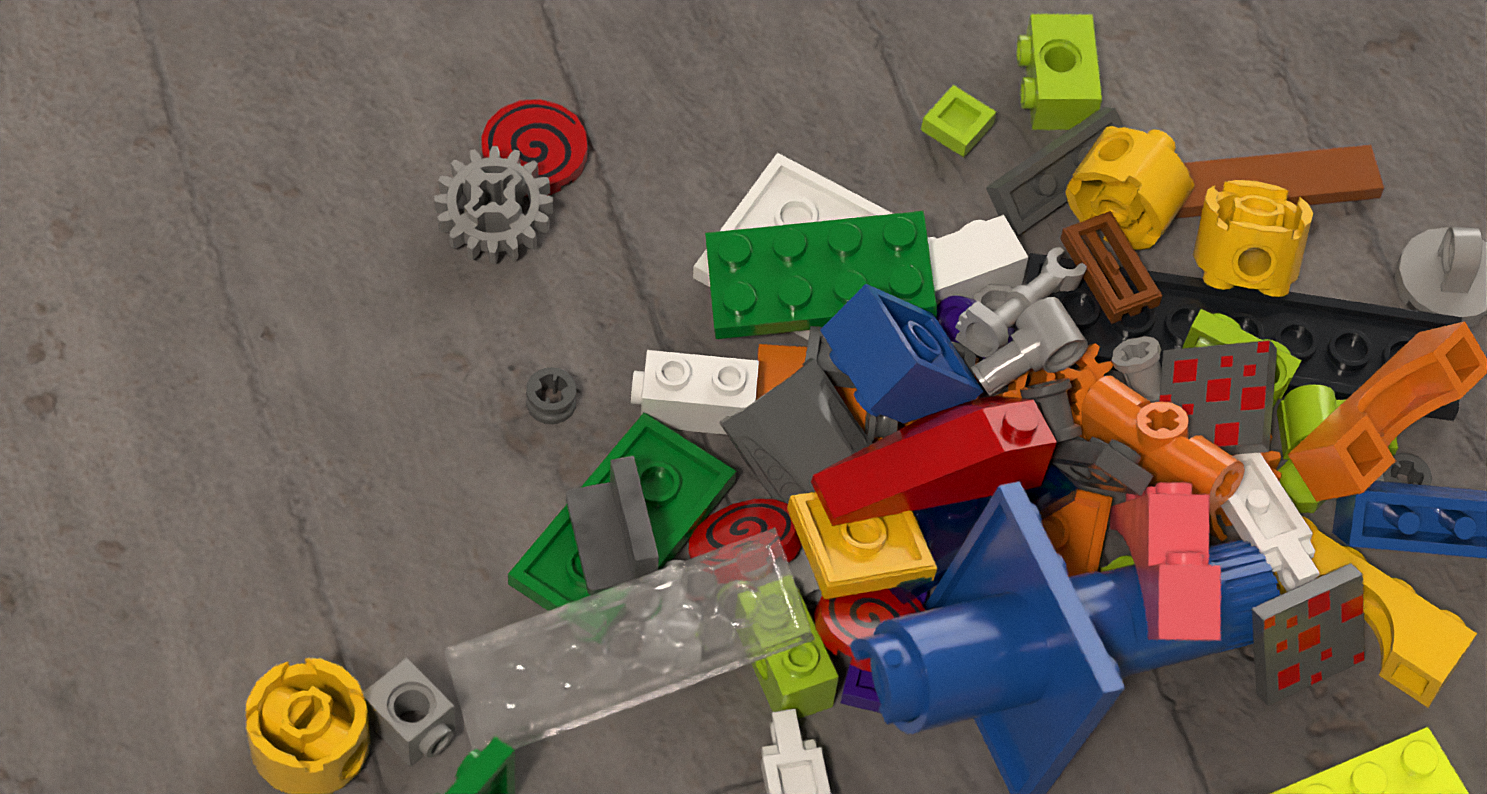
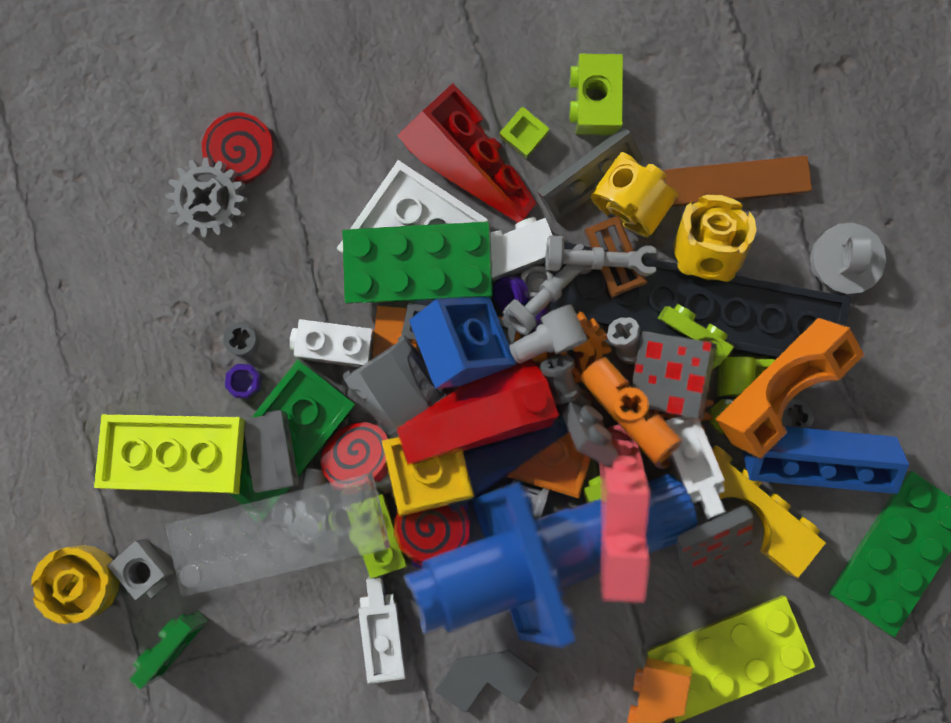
camera: 15 degrees right, 25 degrees up
(452, 540) = (170, 453): none -> neon yellow plate
(558, 449) = (243, 381): none -> dark purple tile
(849, 125) = (455, 145): none -> red wedge
(1027, 253) = (597, 258): none -> light grey piece

